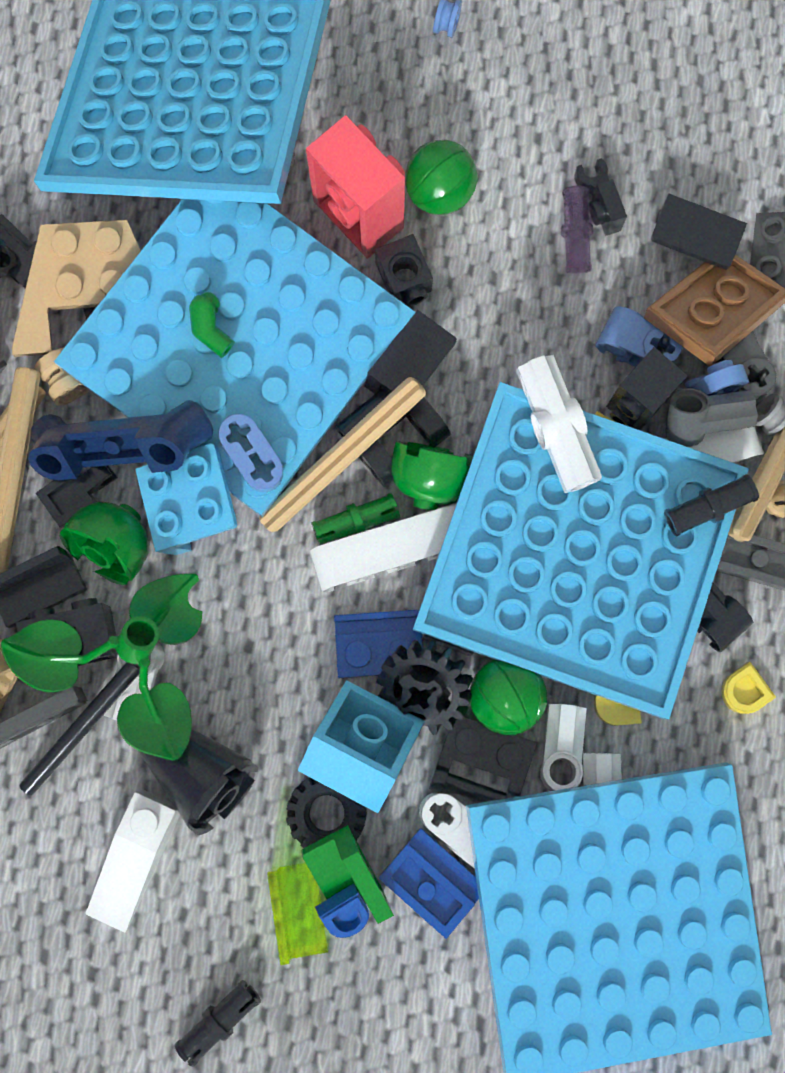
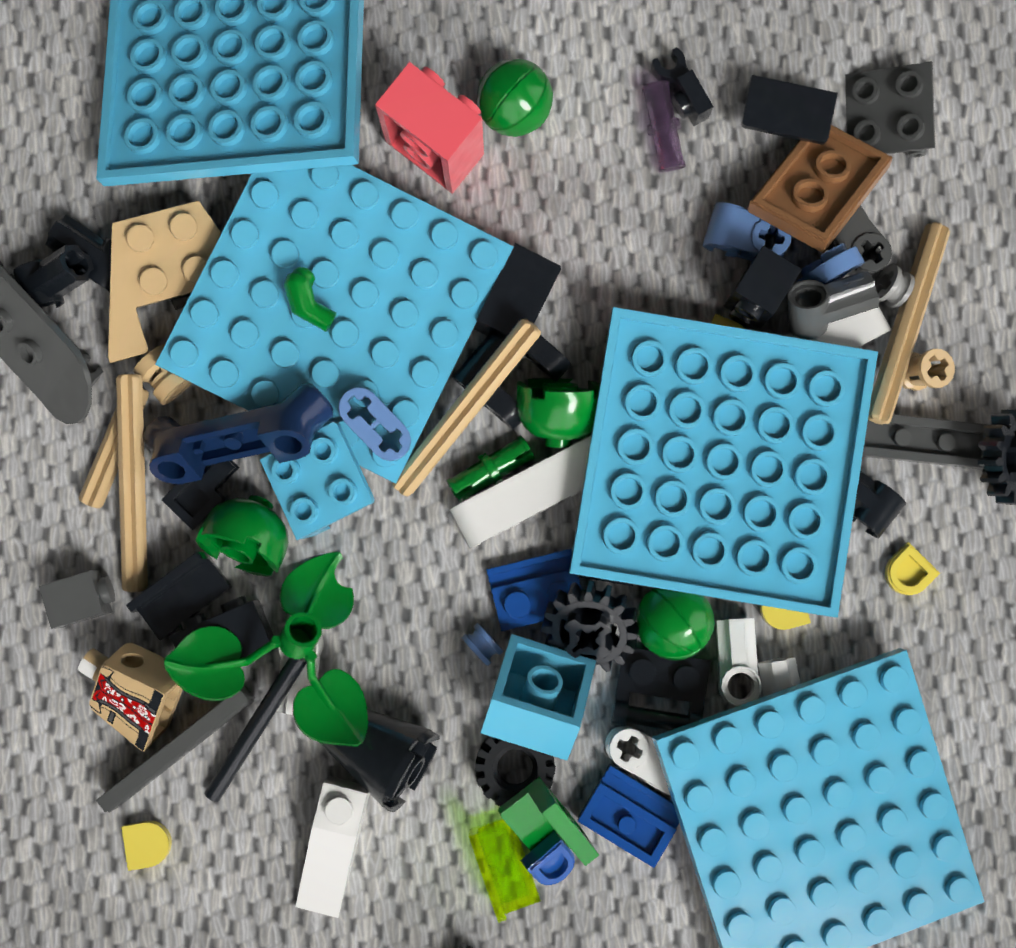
camera: 10 degrees left, 5 degrees up
(317, 686) = (482, 644): none -> medium blue bush
(404, 255) = (489, 185): black brick -> none
(559, 423) = (680, 341): white piece -> none
(711, 505) = (846, 397): black pin -> none

